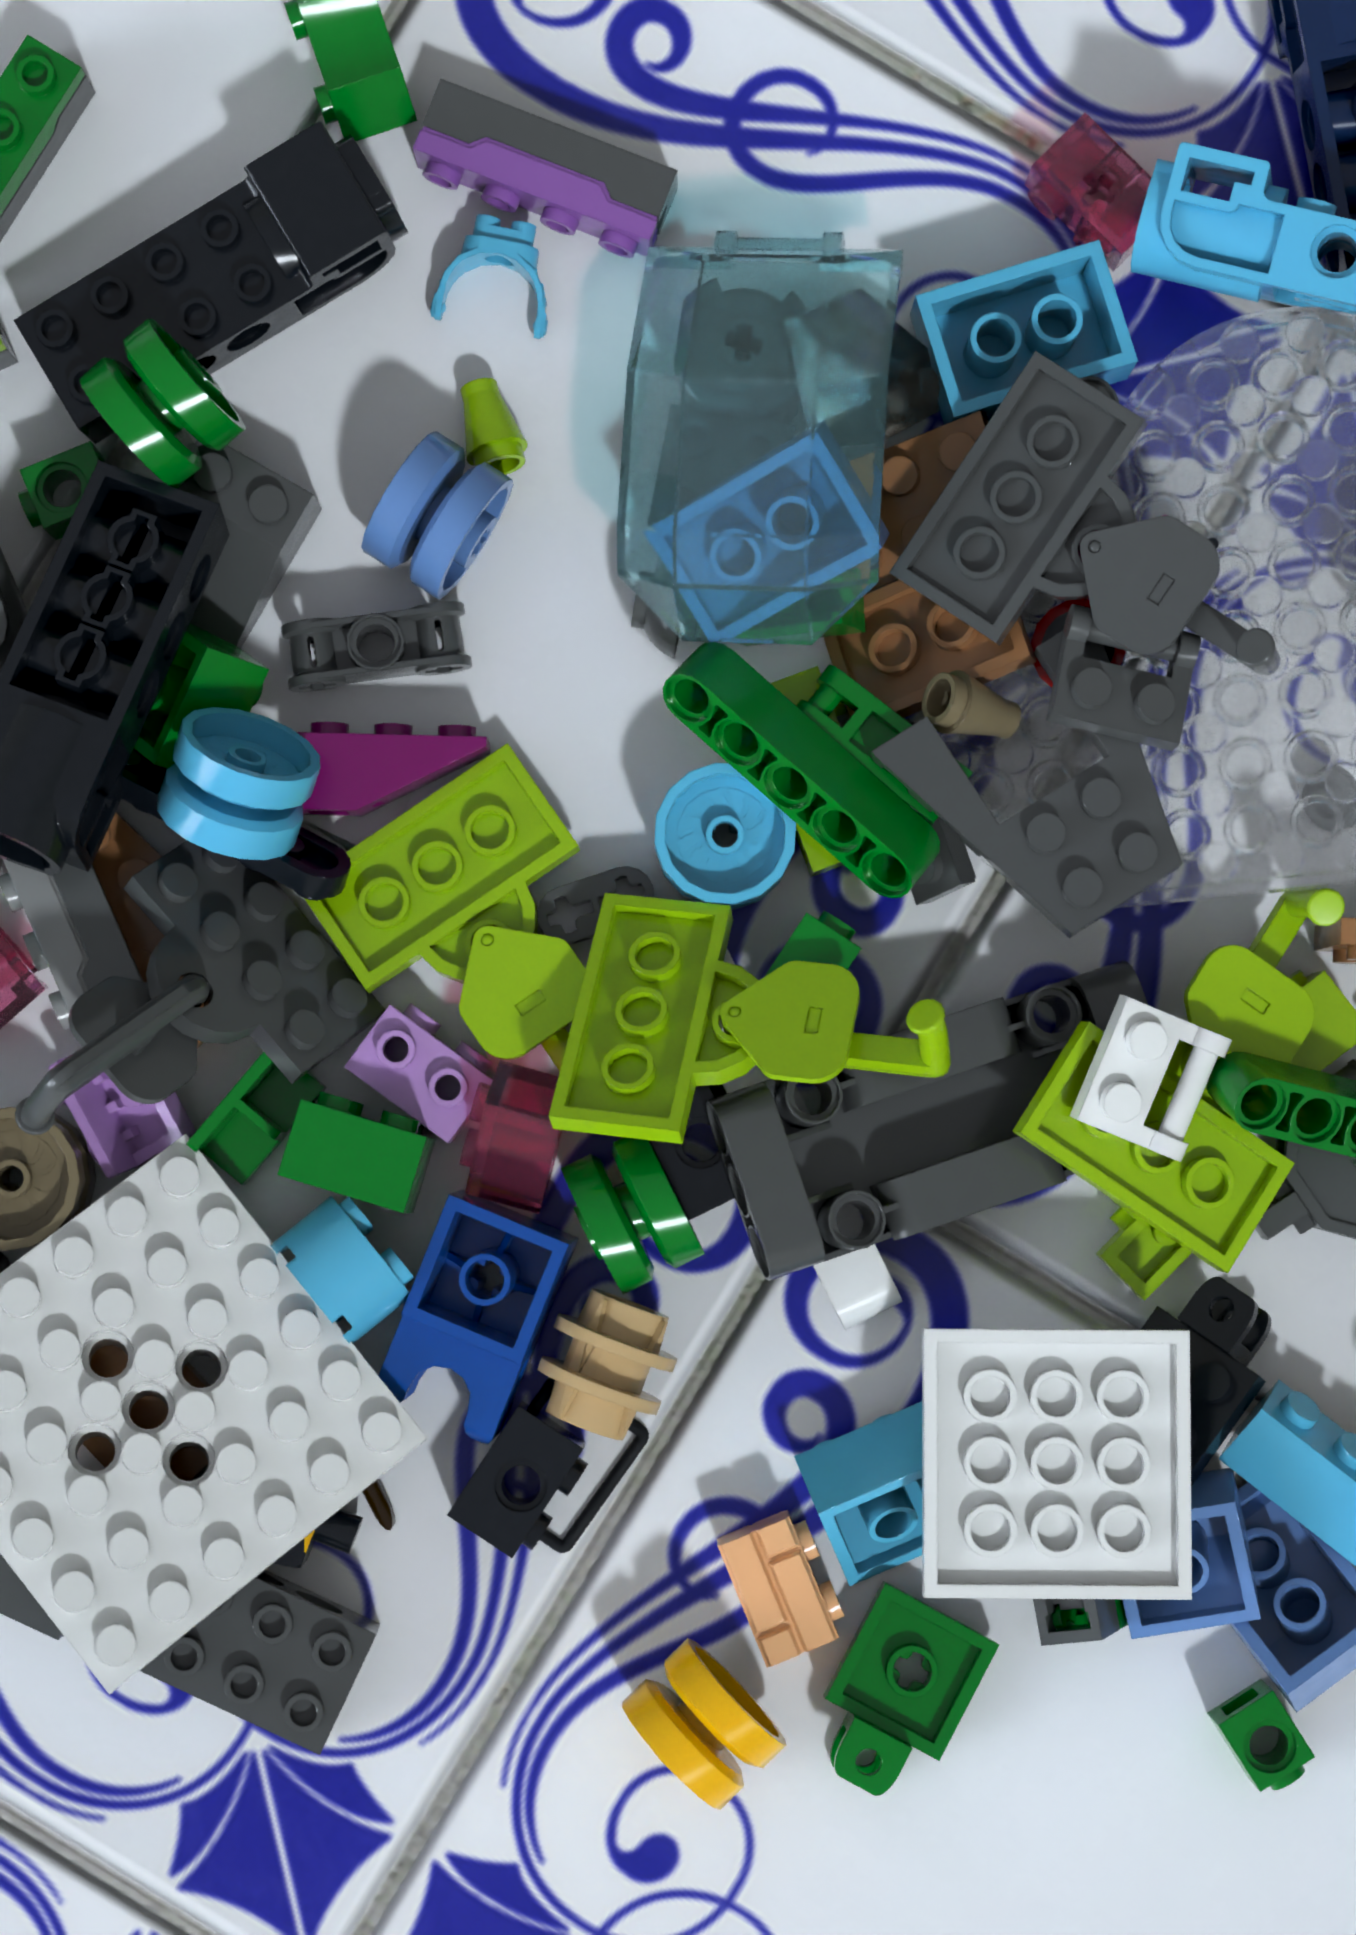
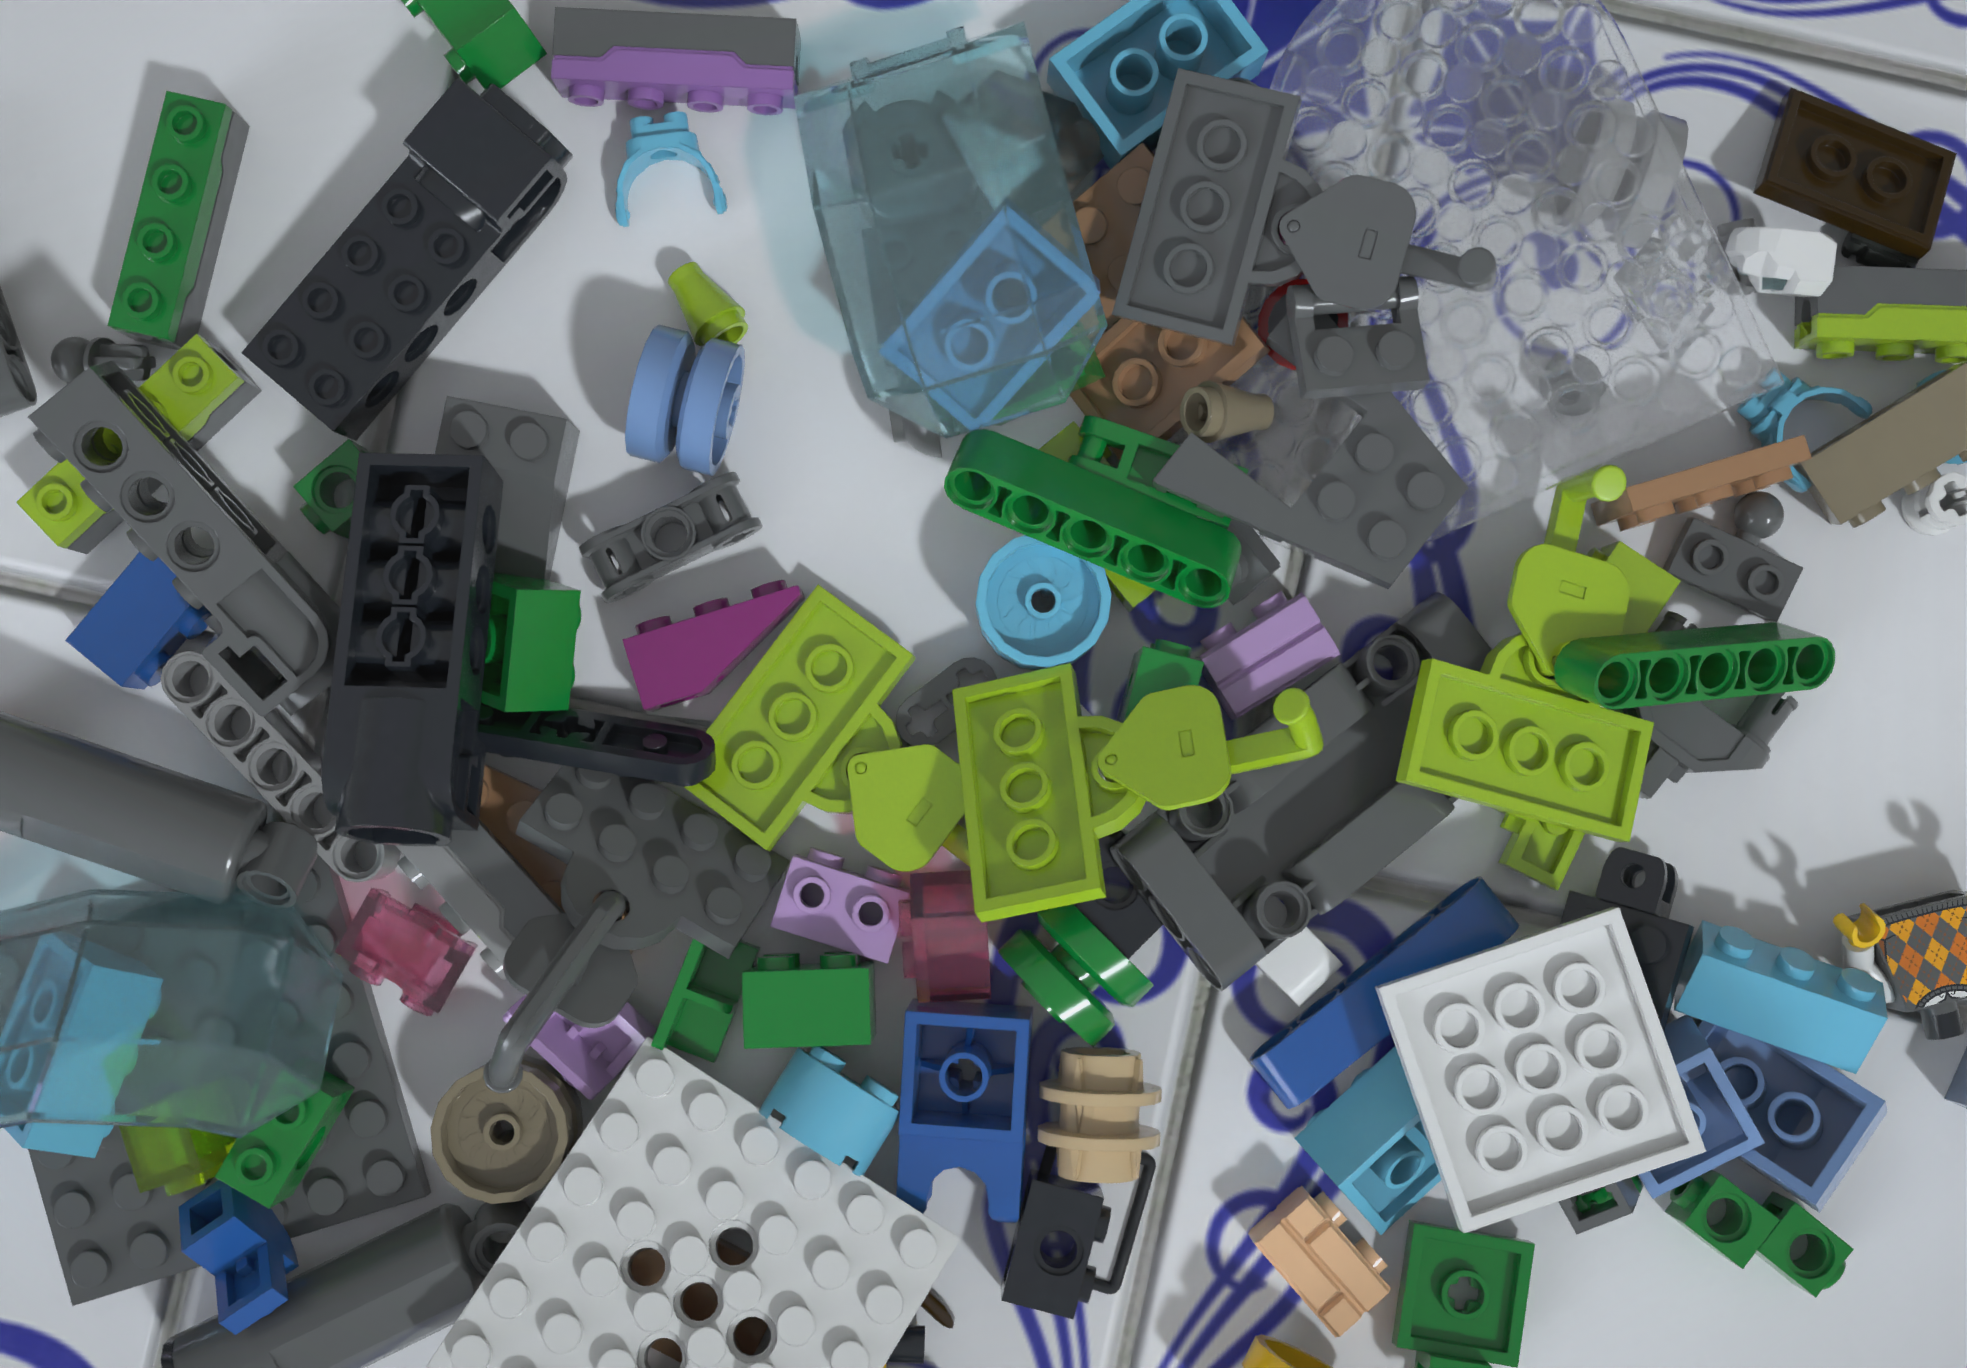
camera: 25 degrees left, 0 degrees up
(155, 410) = (398, 386): green wheel -> none
(238, 783) = (587, 704): medium azure wheel -> none
(890, 1355) = (1350, 1015): none -> blue beam
(937, 963) = (1267, 654): none -> lavender brick
(1131, 1068) = (1486, 689): white plate -> none
(1211, 1703) = (1740, 1230): none -> green brick

